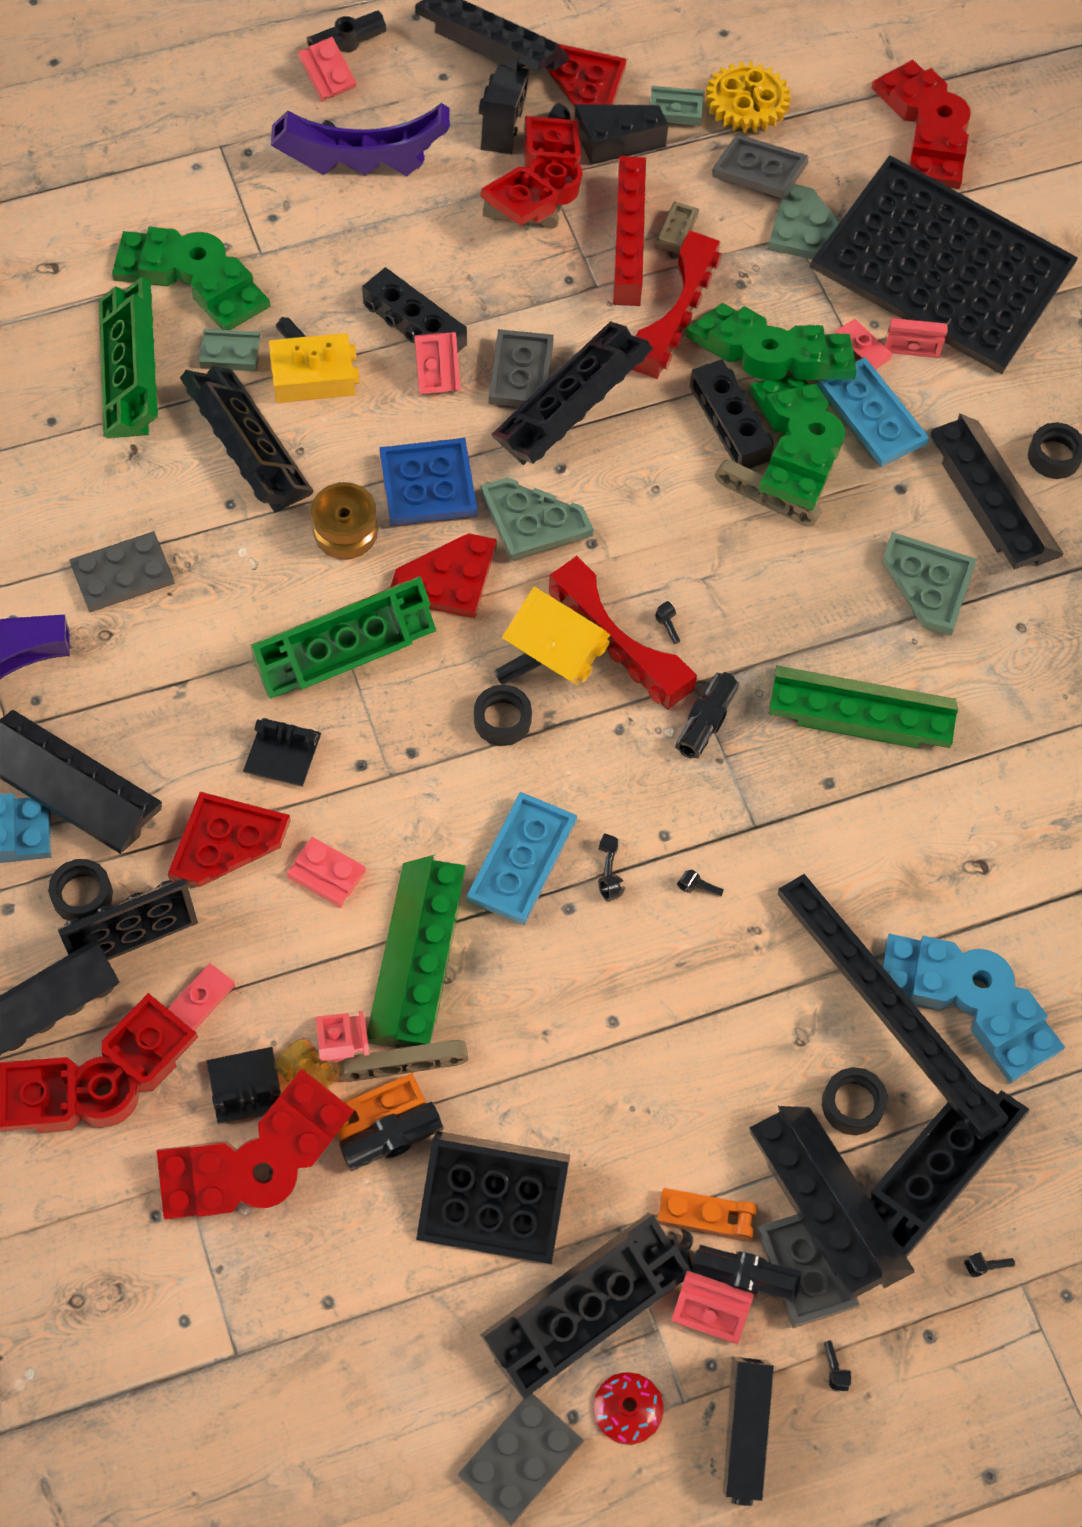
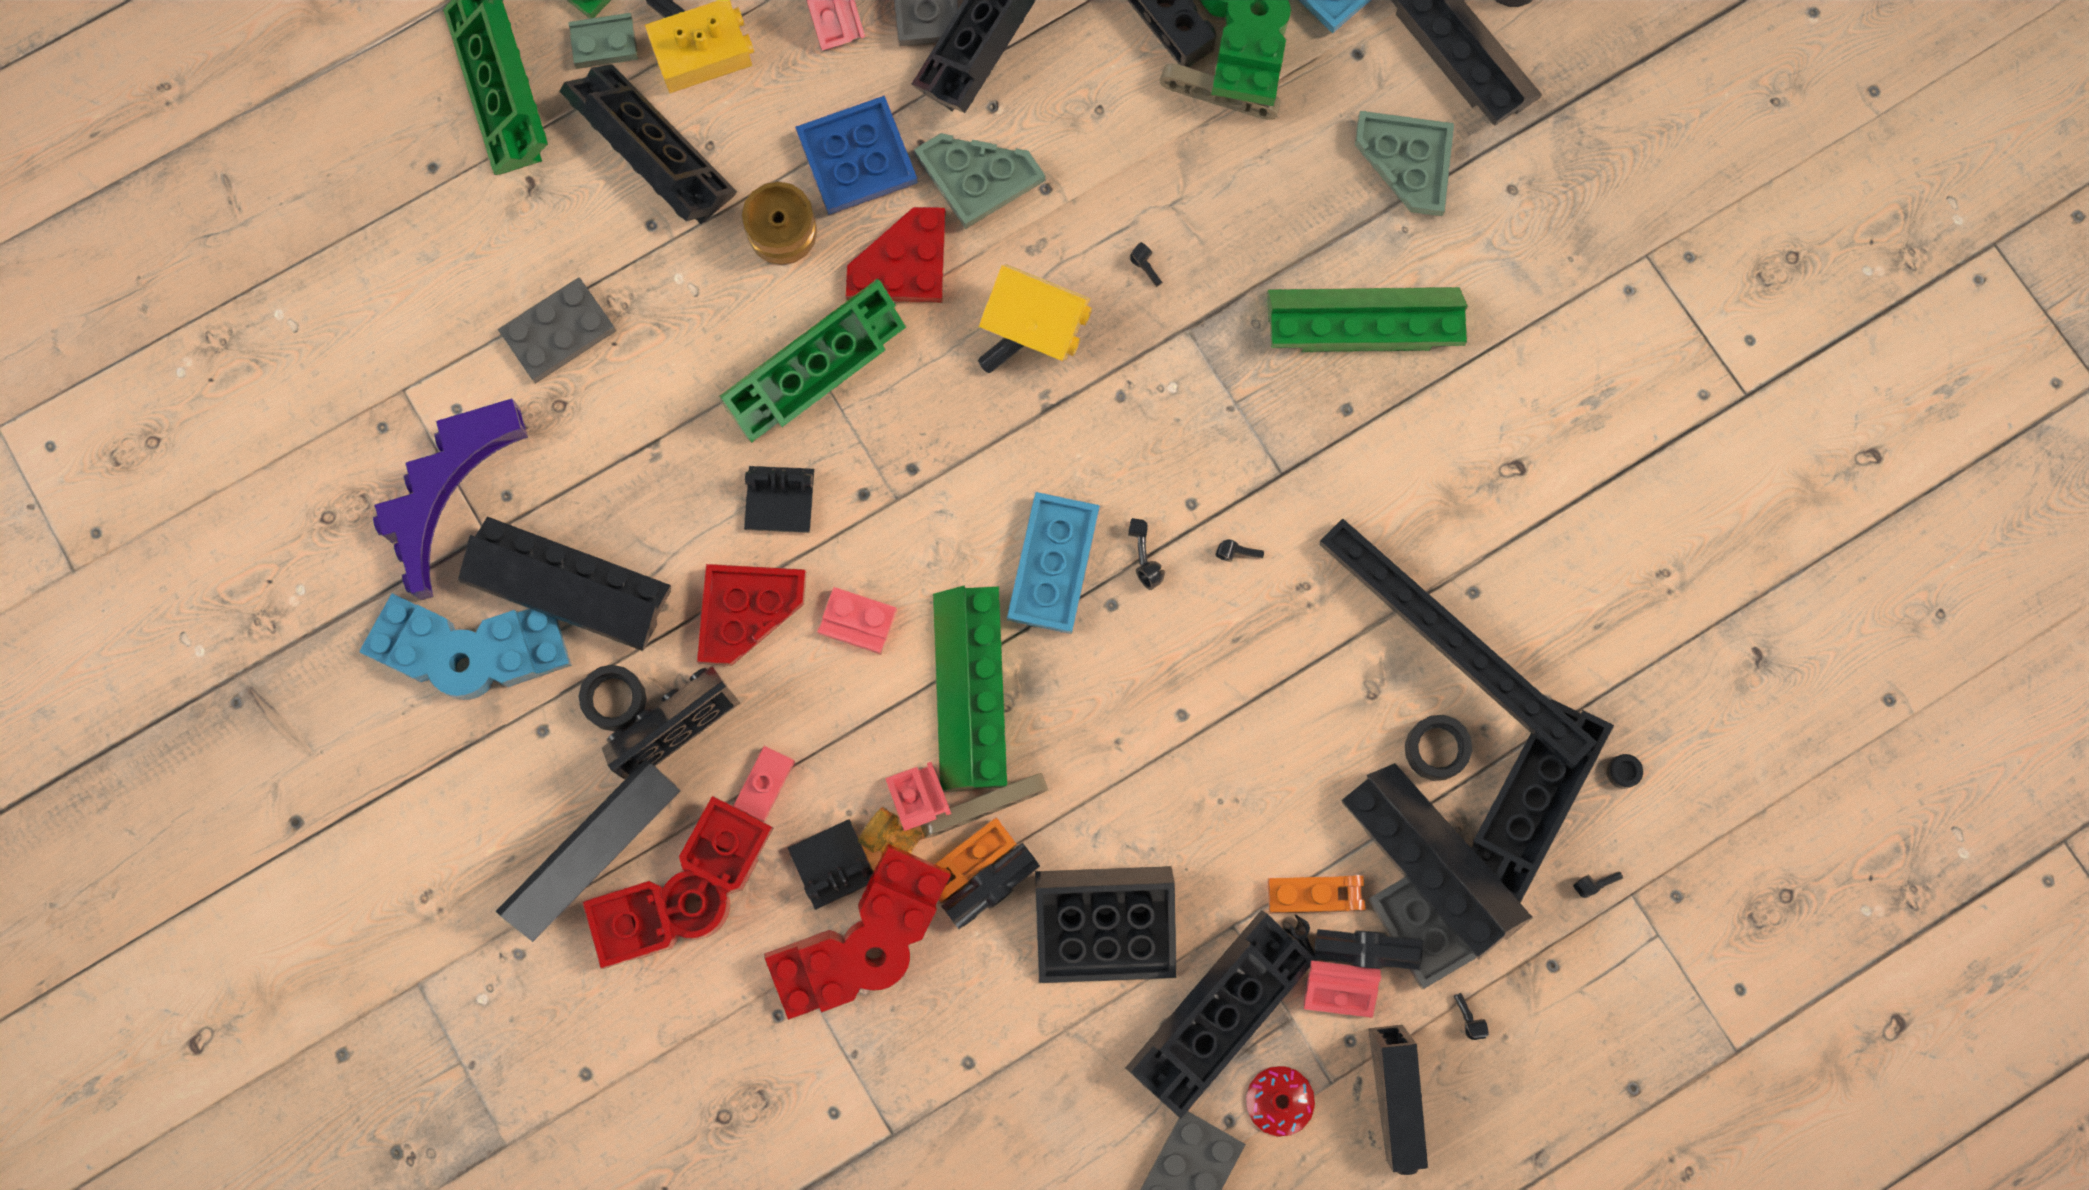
camera: 10 degrees left, 15 degrees up
(501, 694) = (997, 384): black tyre -> none
(661, 673) = (1150, 326): red arch -> none
(707, 715) = (1209, 363): black piece -> none
(1005, 1017) = (1570, 626): dark azure plate -> none
(1035, 1163) = (1625, 771): none -> black tile

